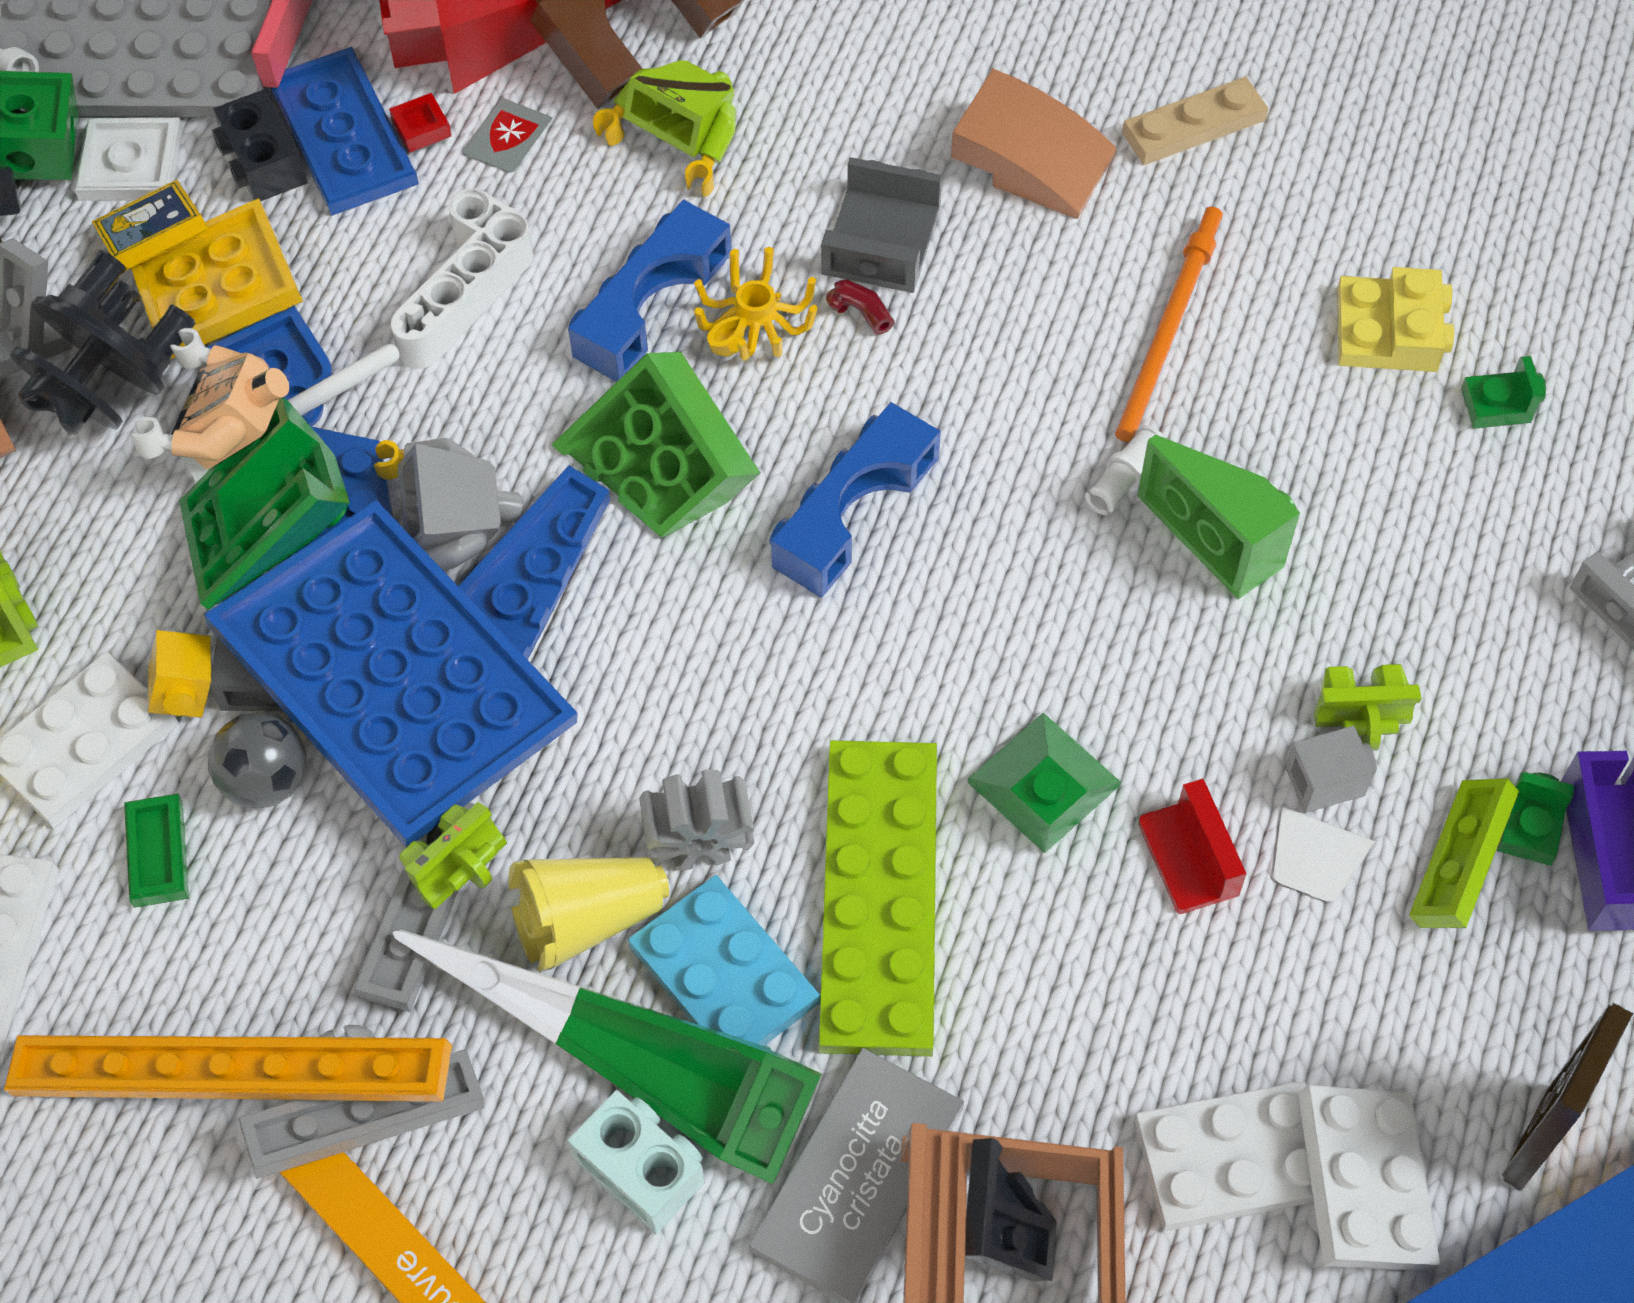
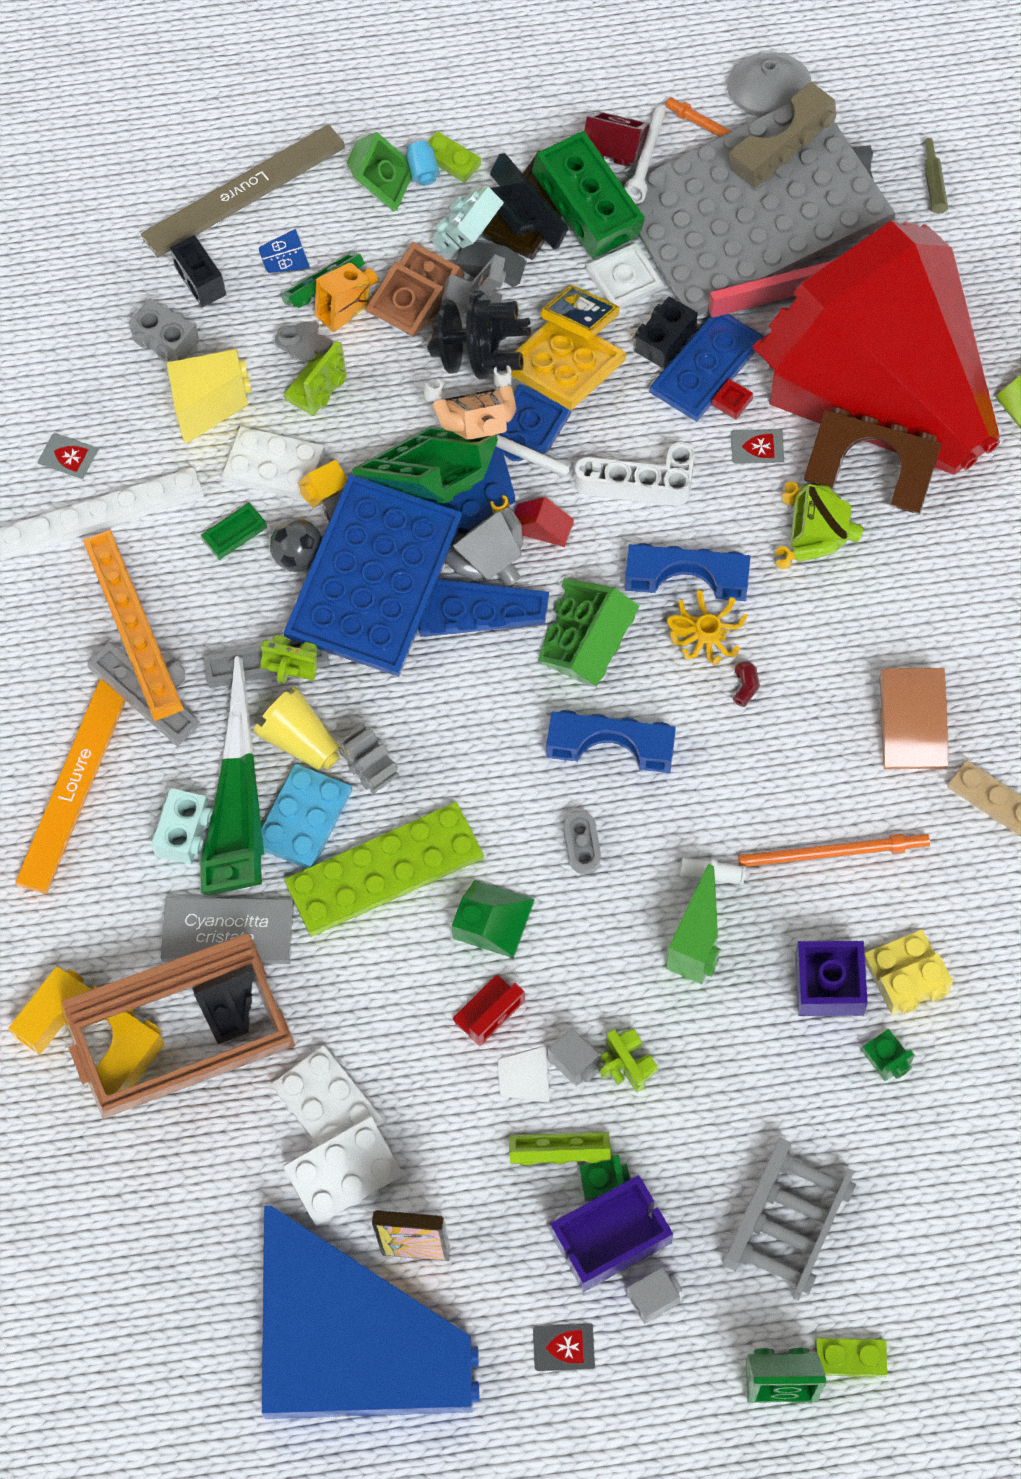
camera: 65 degrees right, 5 degrees up
(447, 415) = (544, 521): none -> red slope
(883, 225) = (806, 668): dark grey panel -> none
(994, 604) = (582, 844): none -> light grey plate
(1369, 399) = (831, 978): none -> dark purple brick

